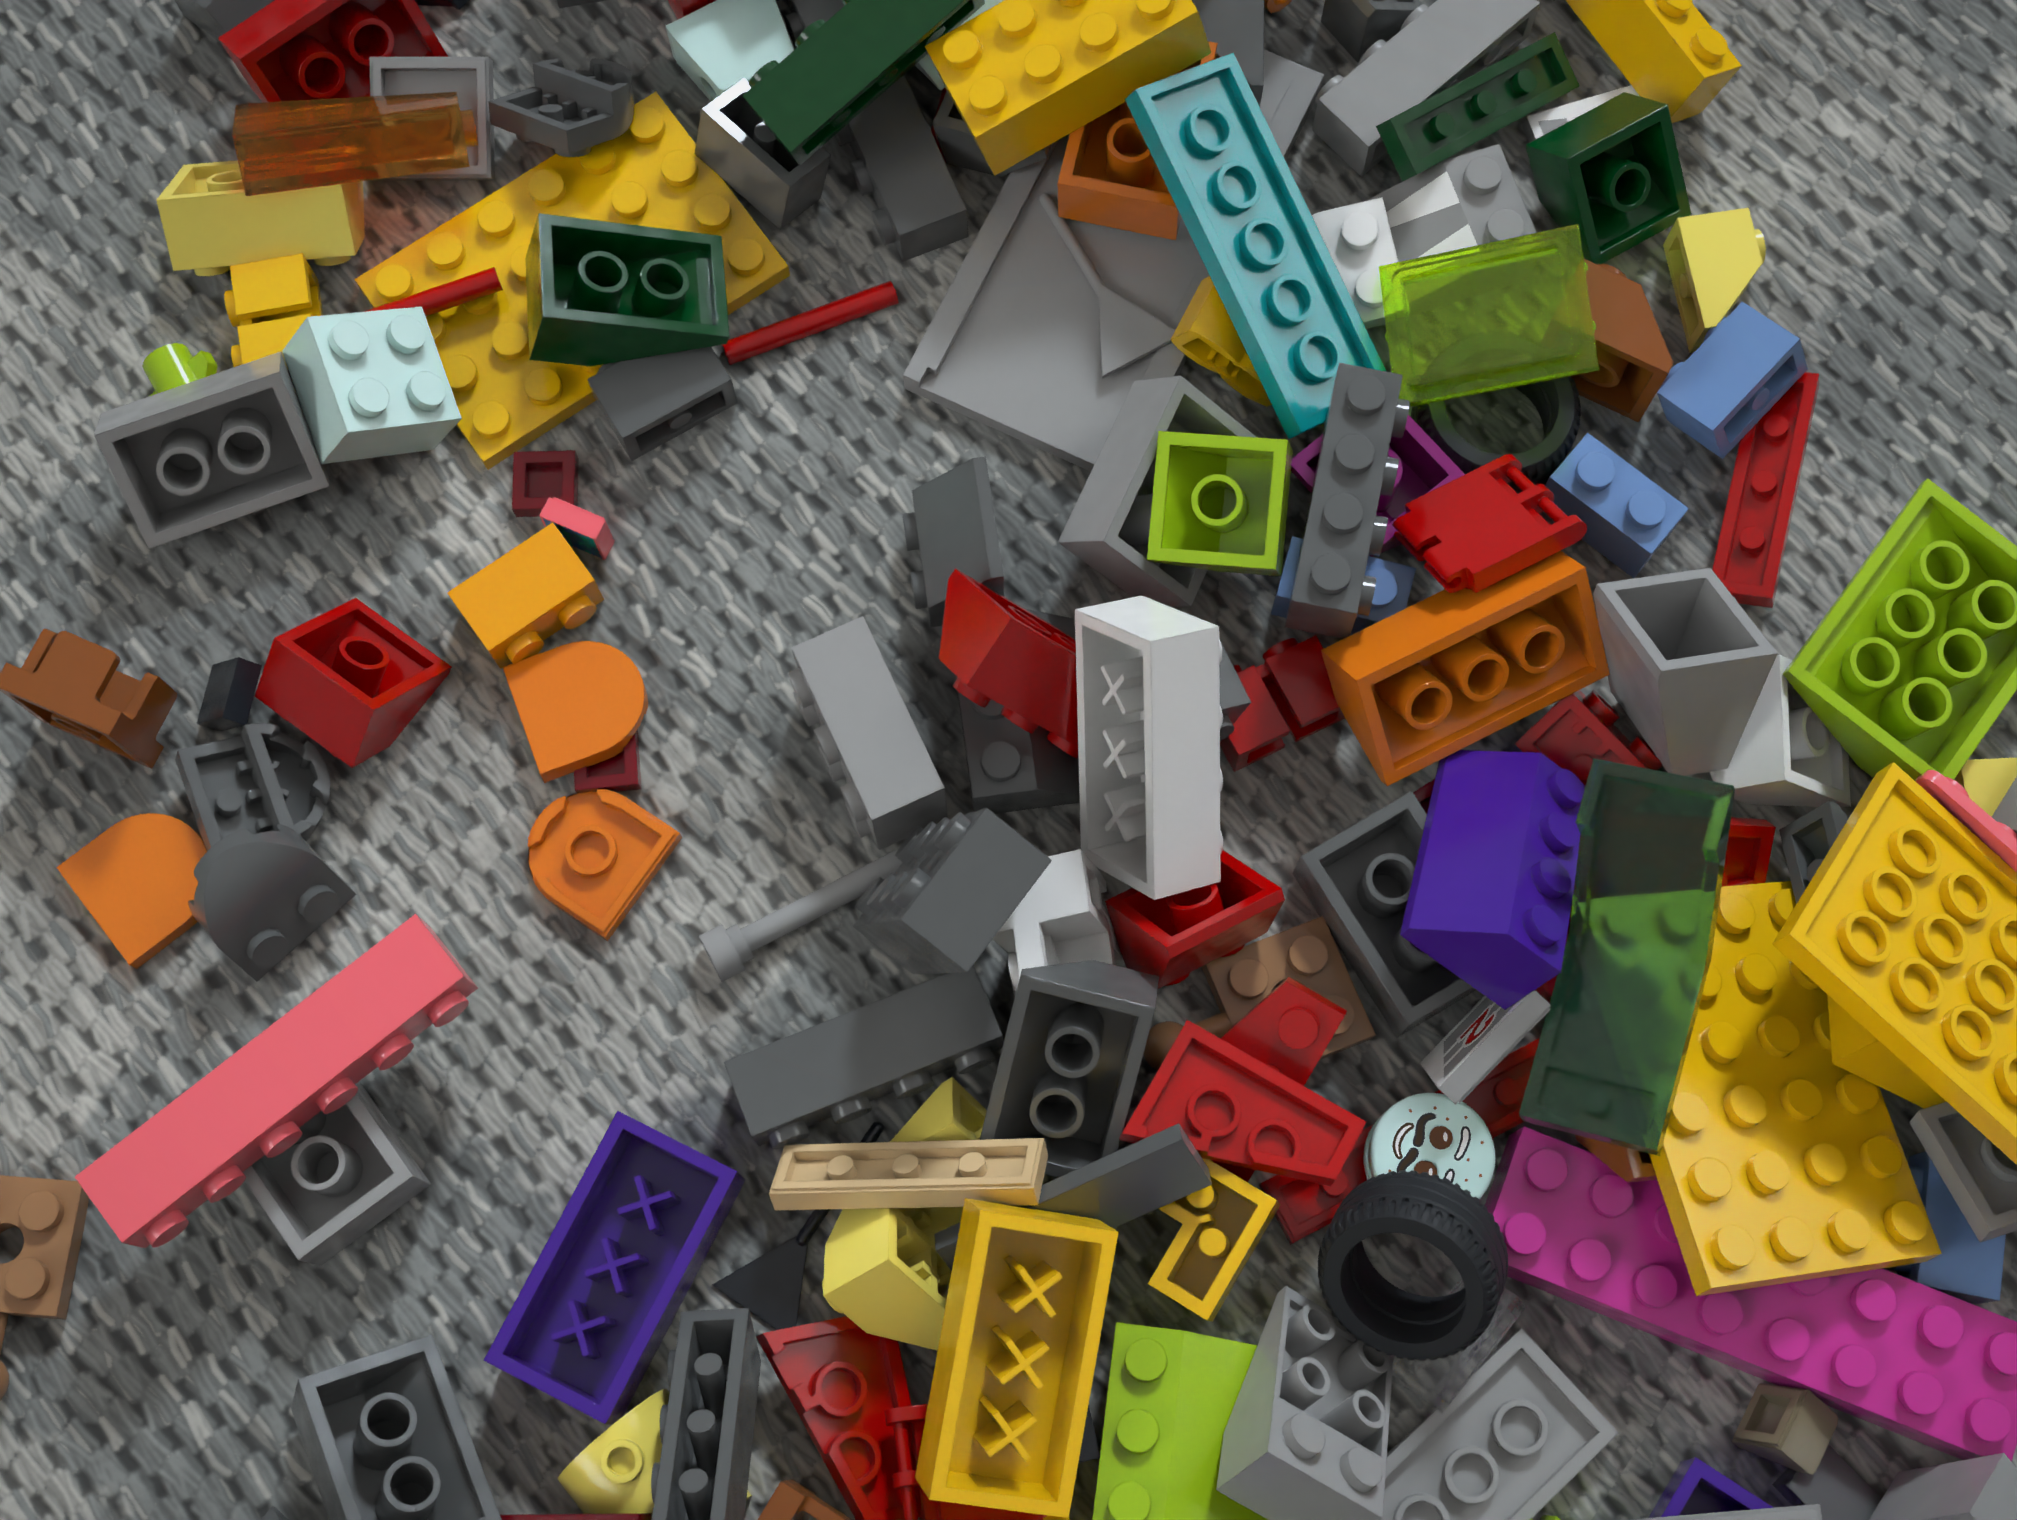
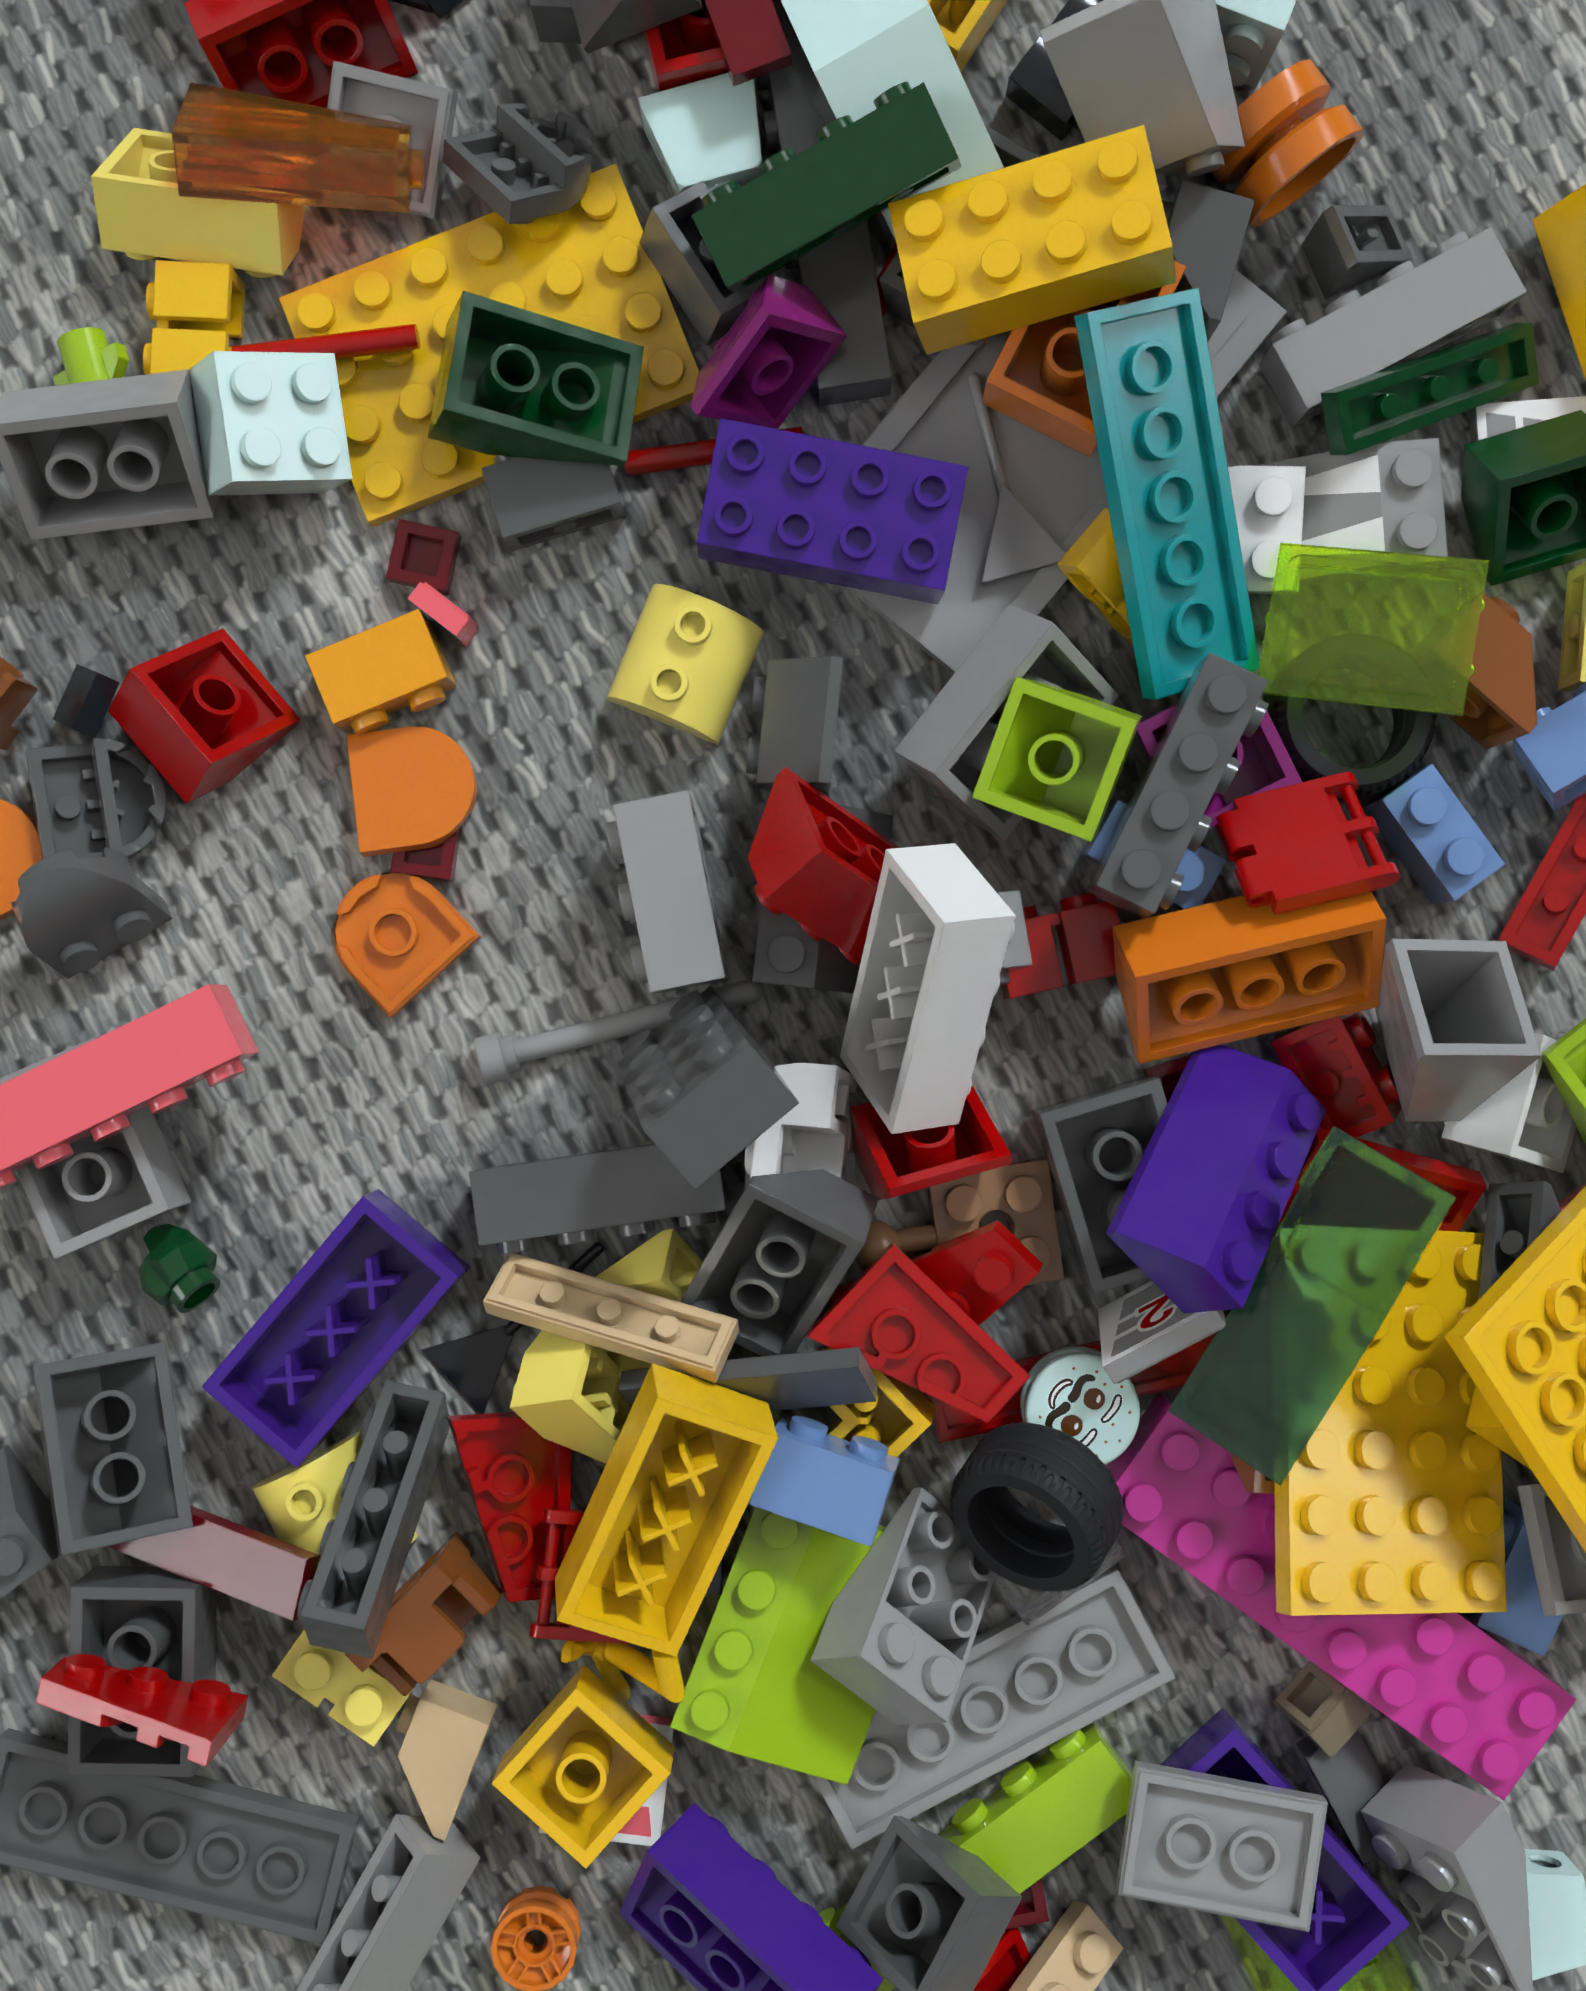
camera: 15 degrees right, 15 degrees up
(431, 1254) = (178, 1268): none -> dark green rock
(830, 518) = (686, 662): none -> light yellow brick
(844, 216) = (768, 356): none -> magenta slope
(939, 339) = (831, 511): none -> dark purple brick
(1181, 1281) = (827, 1480): none -> medium blue brick

